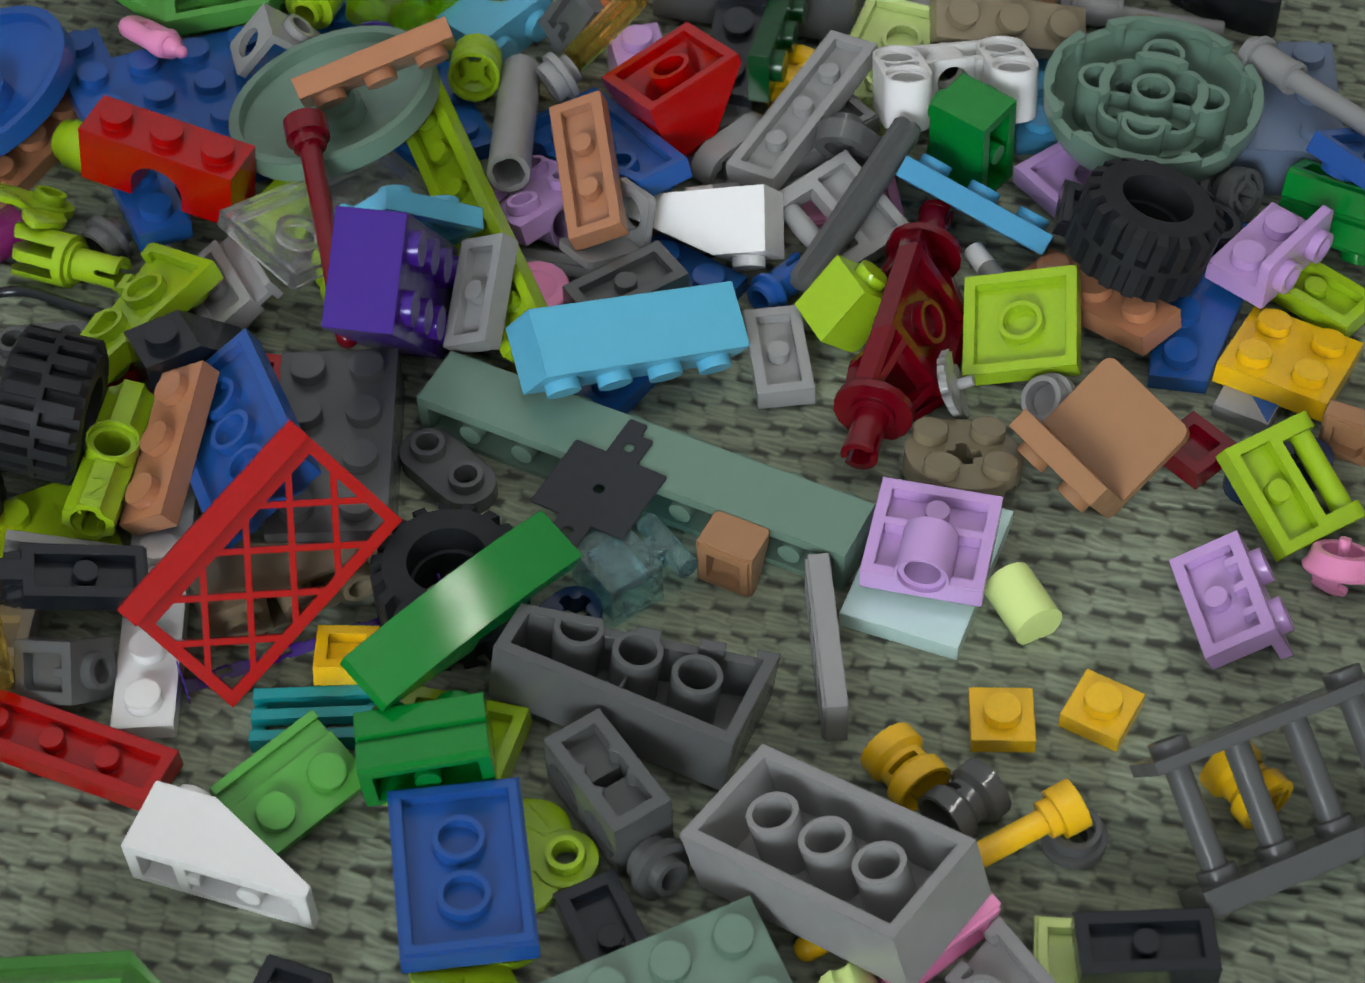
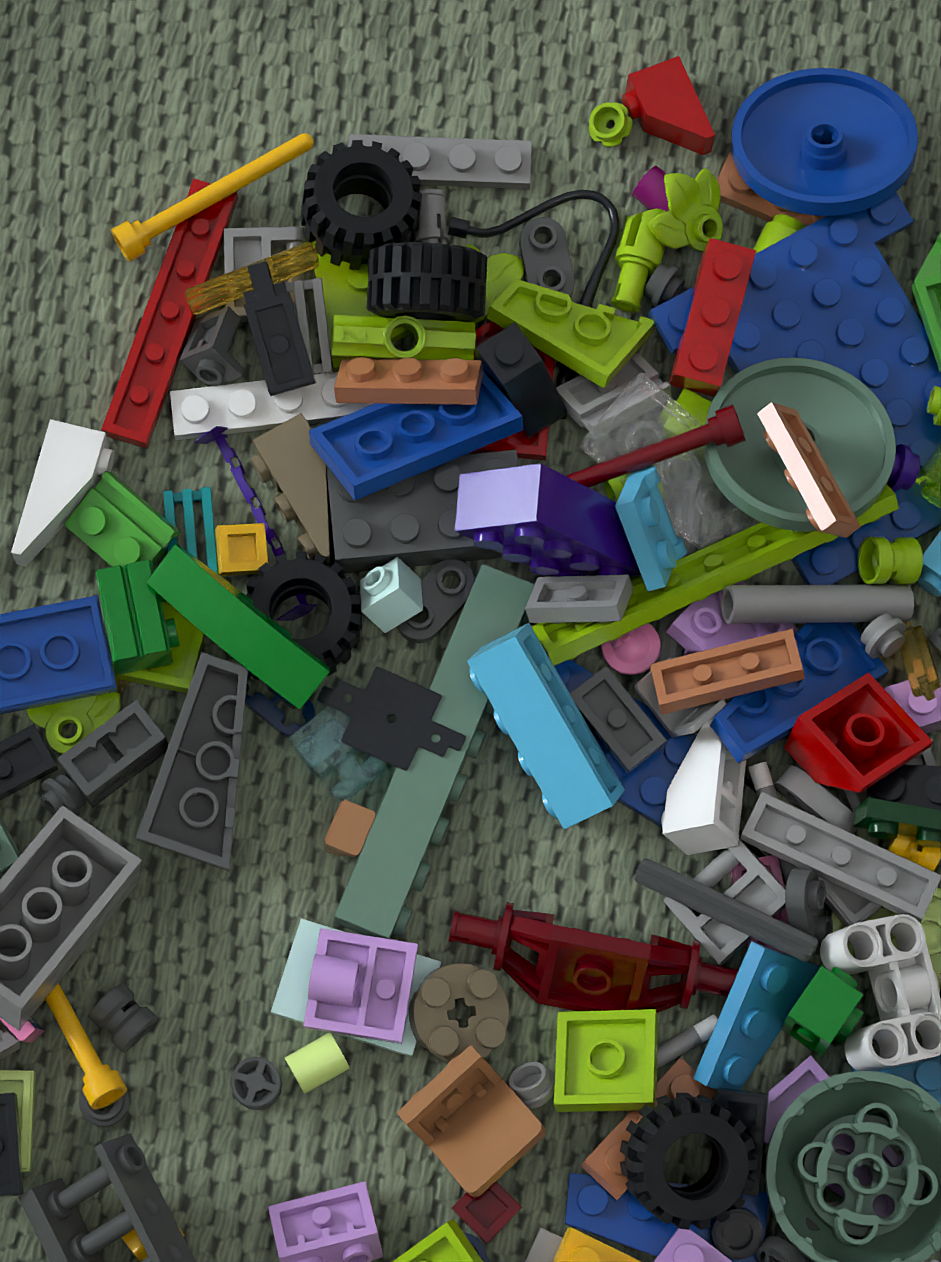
camera: 80 degrees right, 25 degrees up
(153, 37) = (893, 273): bright pink piece -> none
(220, 525) = (312, 439): red fence -> none
(272, 28) = (895, 383): light grey bracket -> none
(438, 481) = (391, 594): none -> light aqua plate
(775, 287) = (649, 845): blue pin -> none
(779, 357) = (571, 856): light grey plate -> none
(826, 648) = (262, 908): light grey tile -> none
(843, 302) = (618, 906): lime brick -> none
(903, 765) = (164, 967): yellow wheel -> none
(952, 384) = (537, 1002): light grey plant -> none
(1001, 719) = (210, 1047): yellow plate -> none
(1046, 649) = (251, 1072): none -> dark grey wheel
(1101, 710) = (222, 1125): yellow plate -> none

